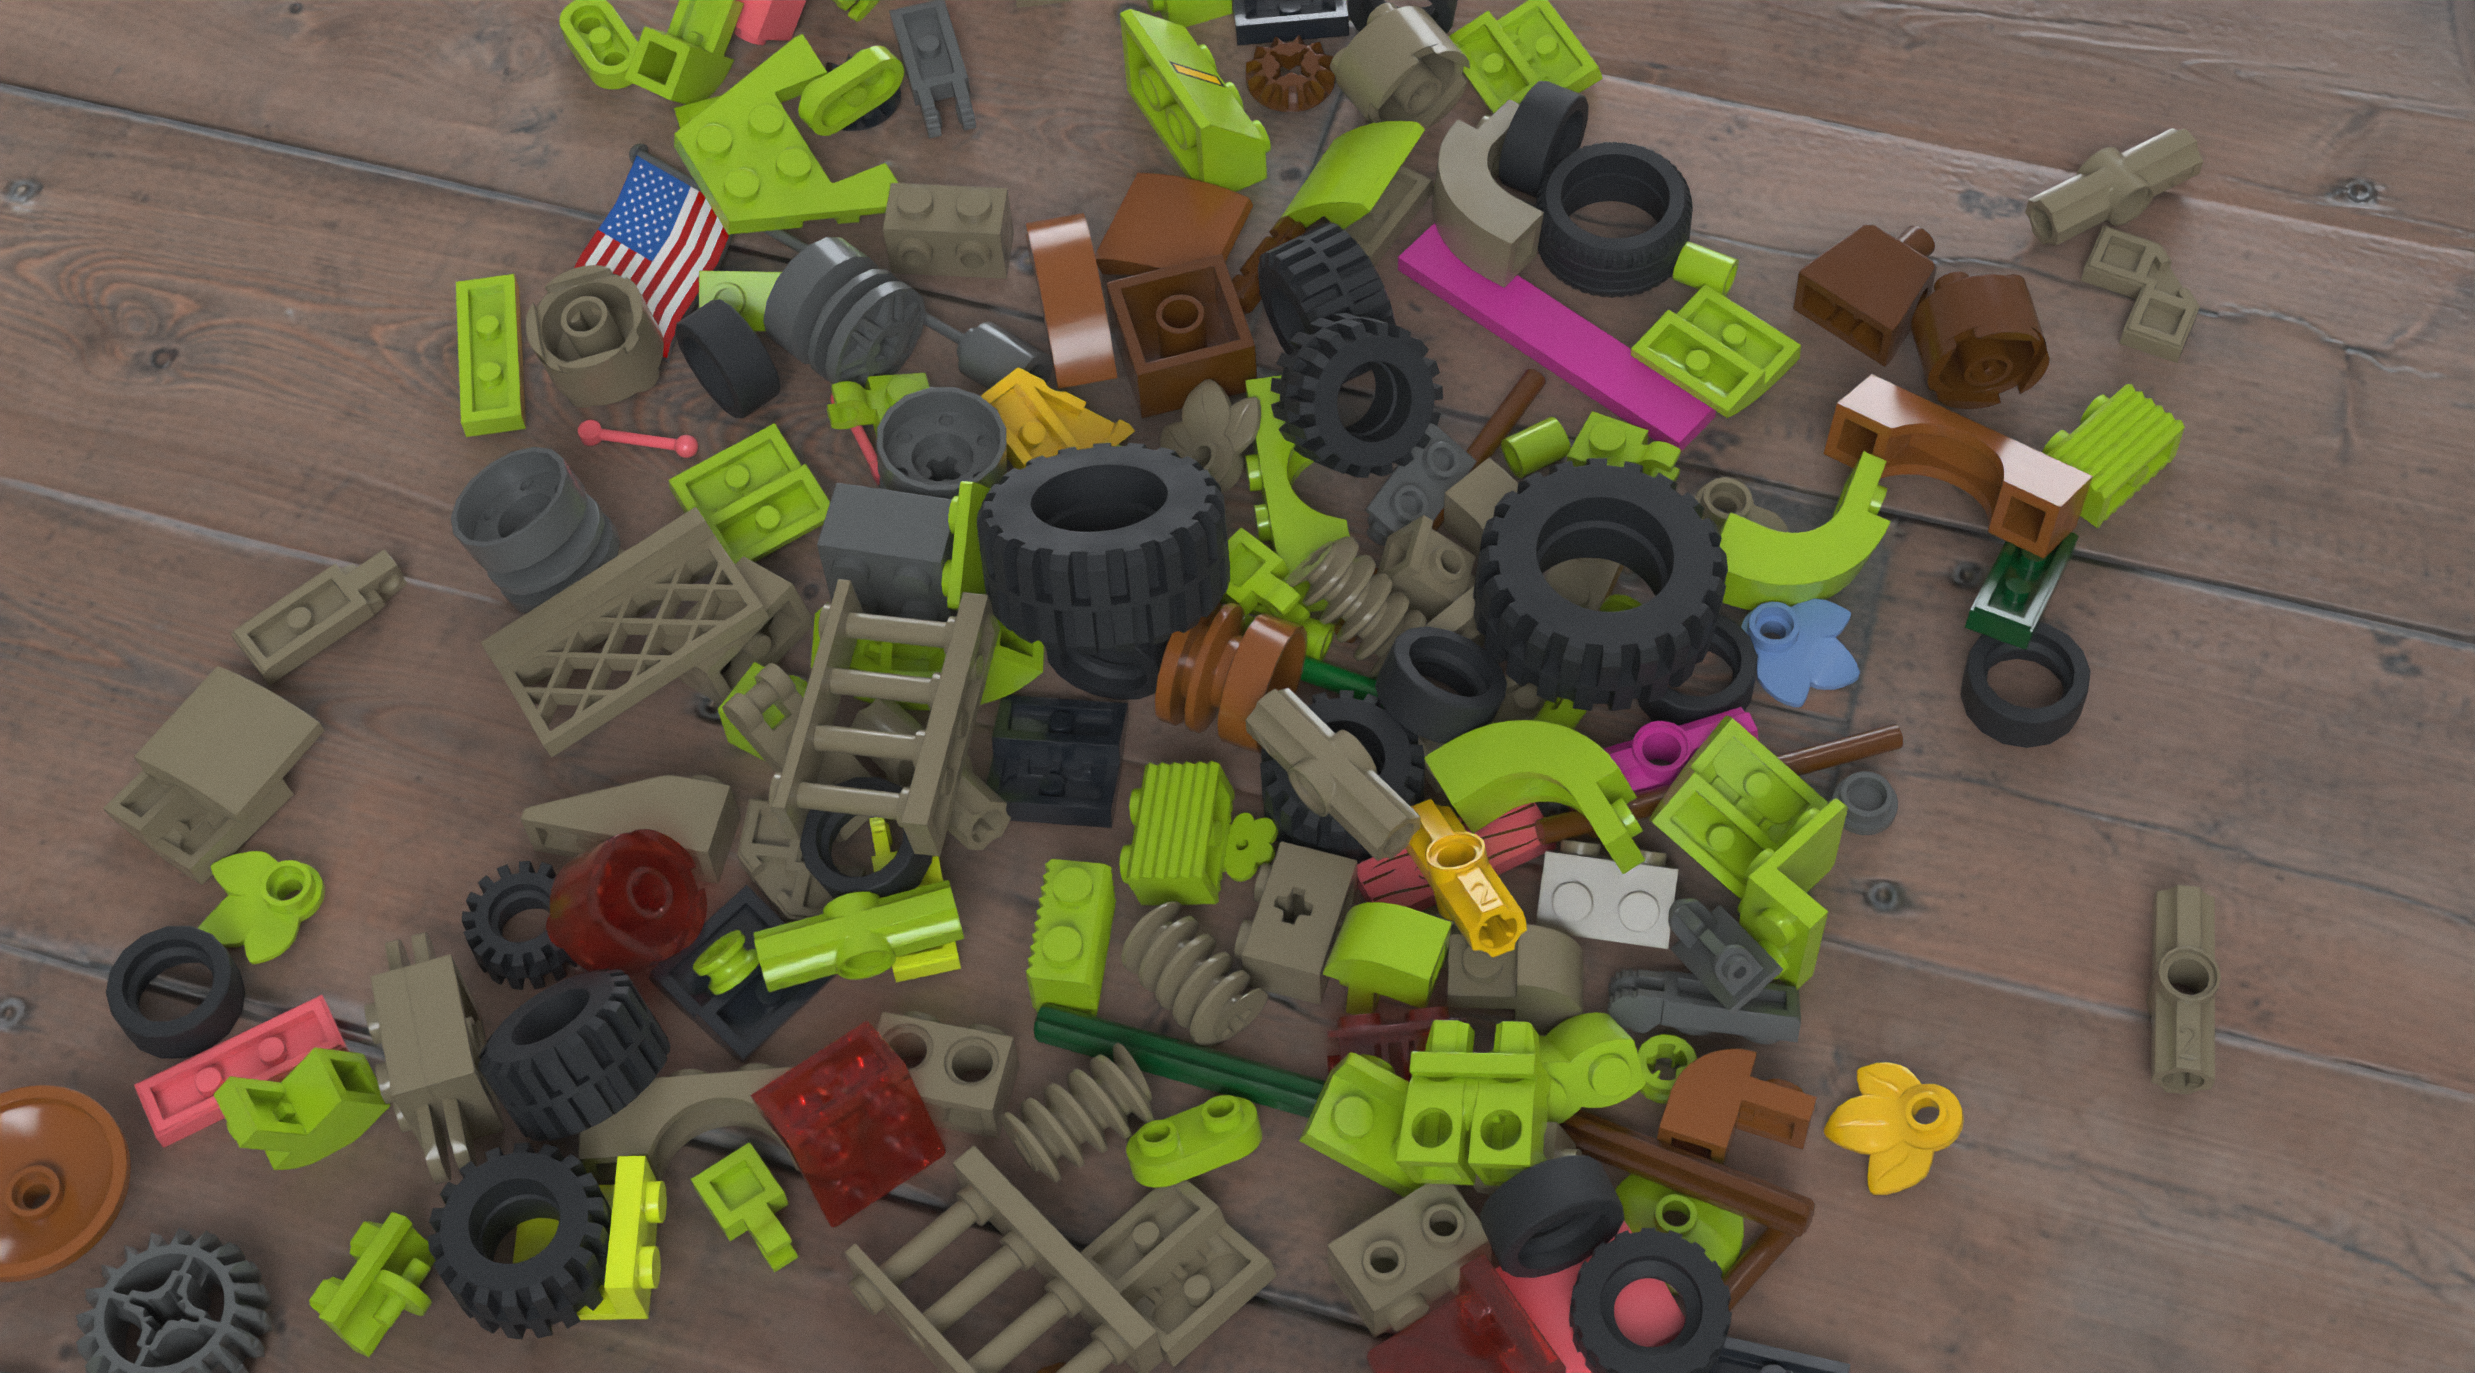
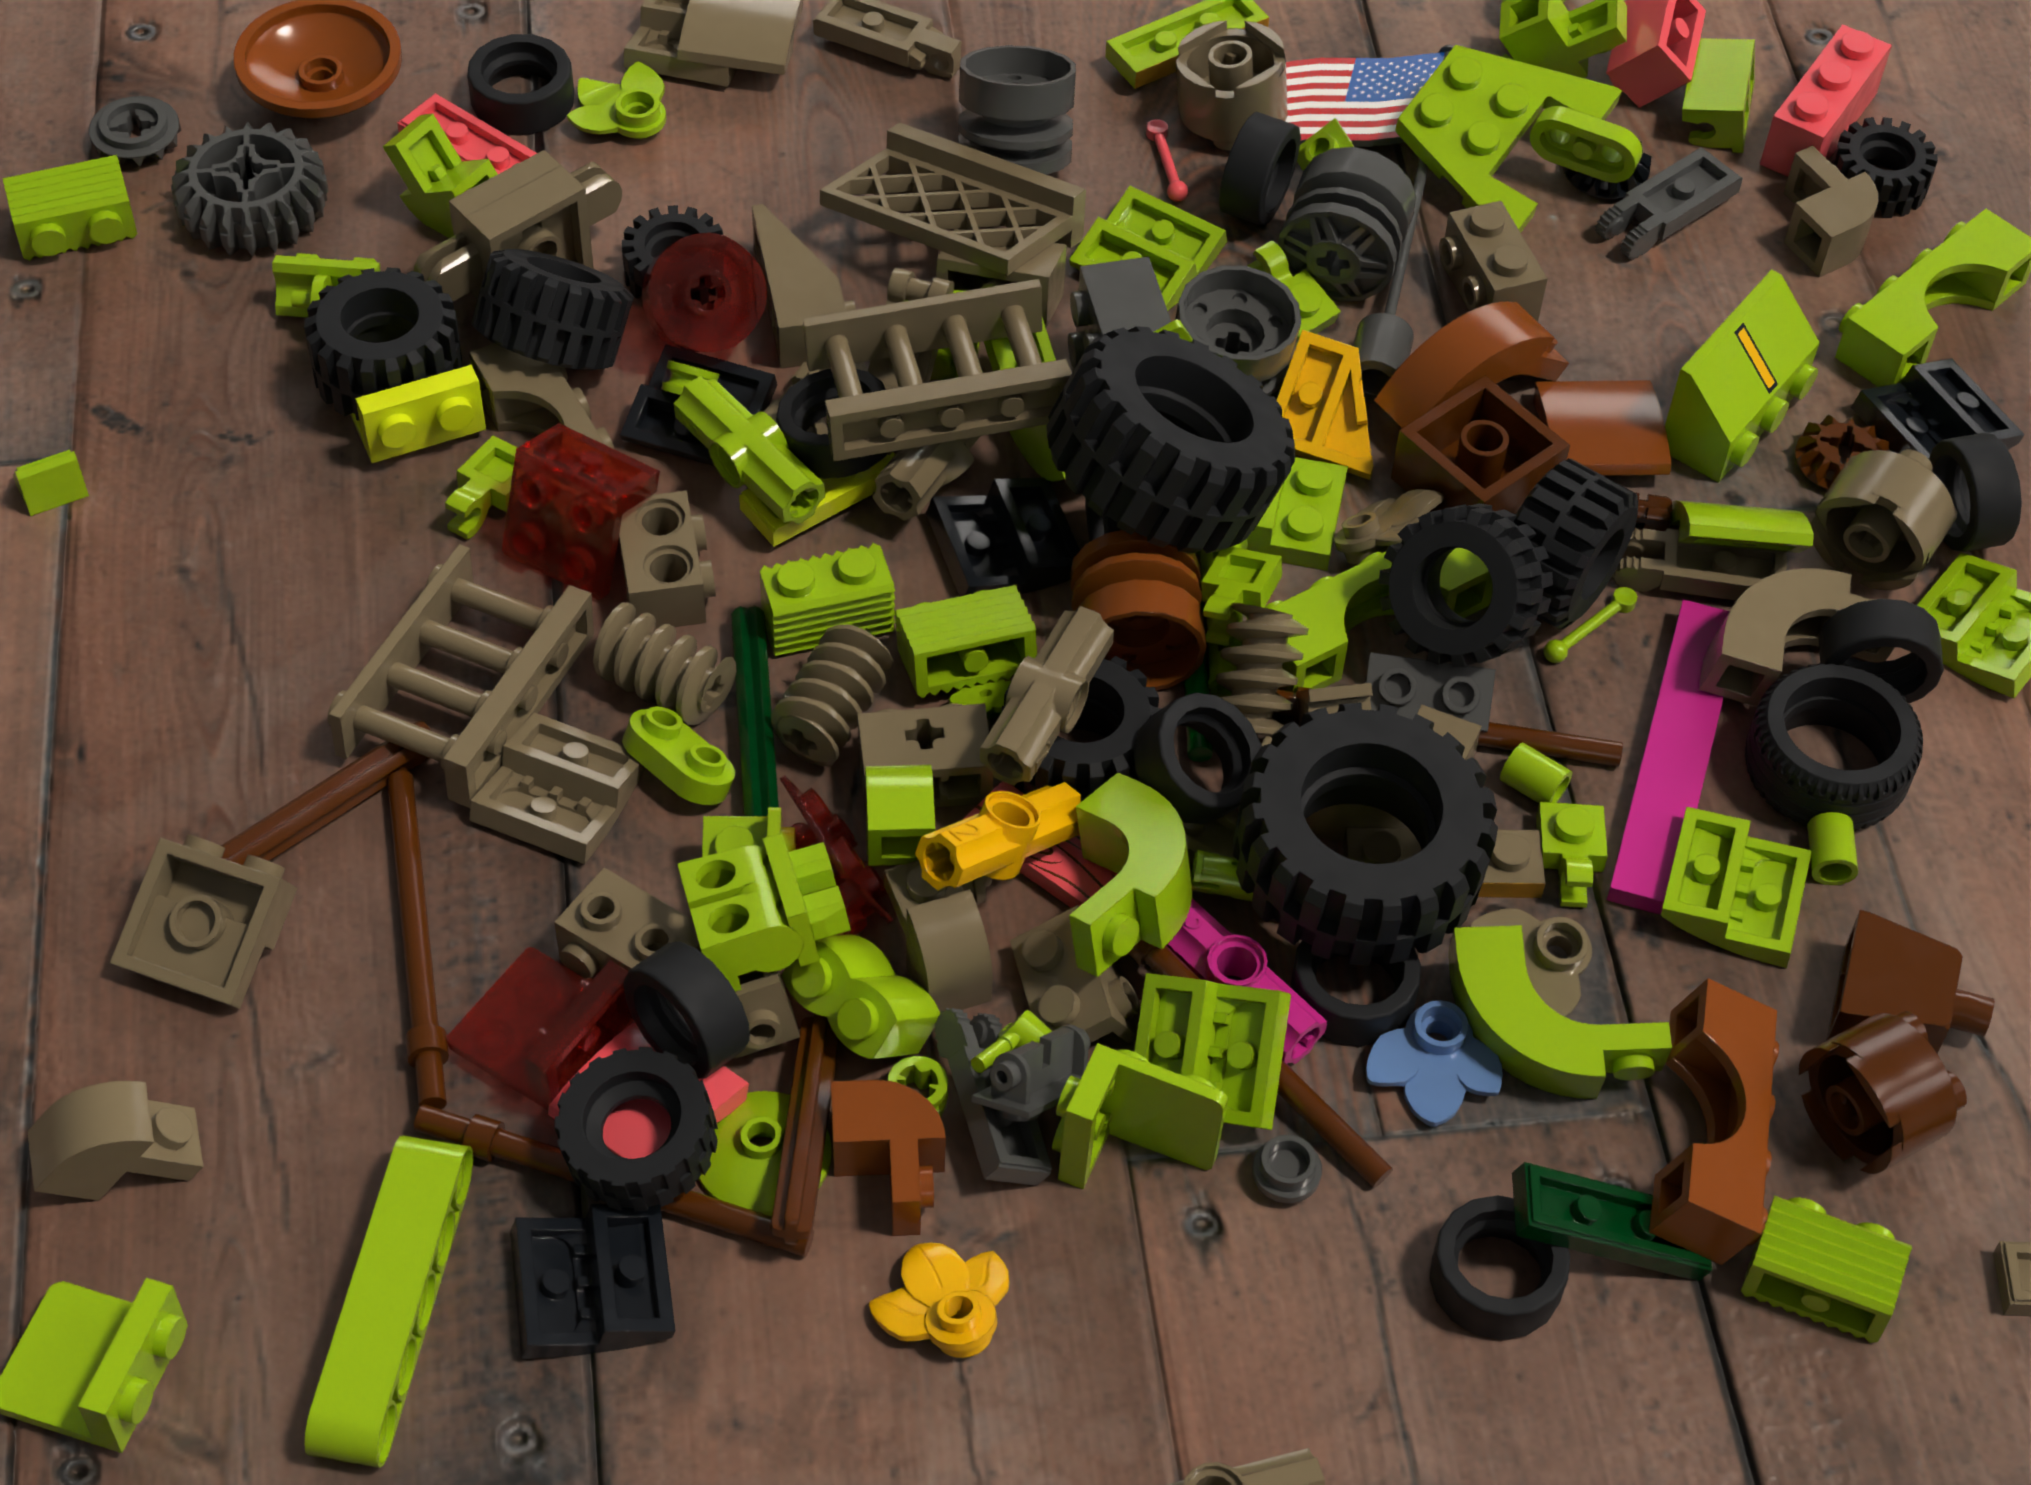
camera: 60 degrees right, 5 degrees down
(1666, 958) = (1013, 1035): none -> lime hand

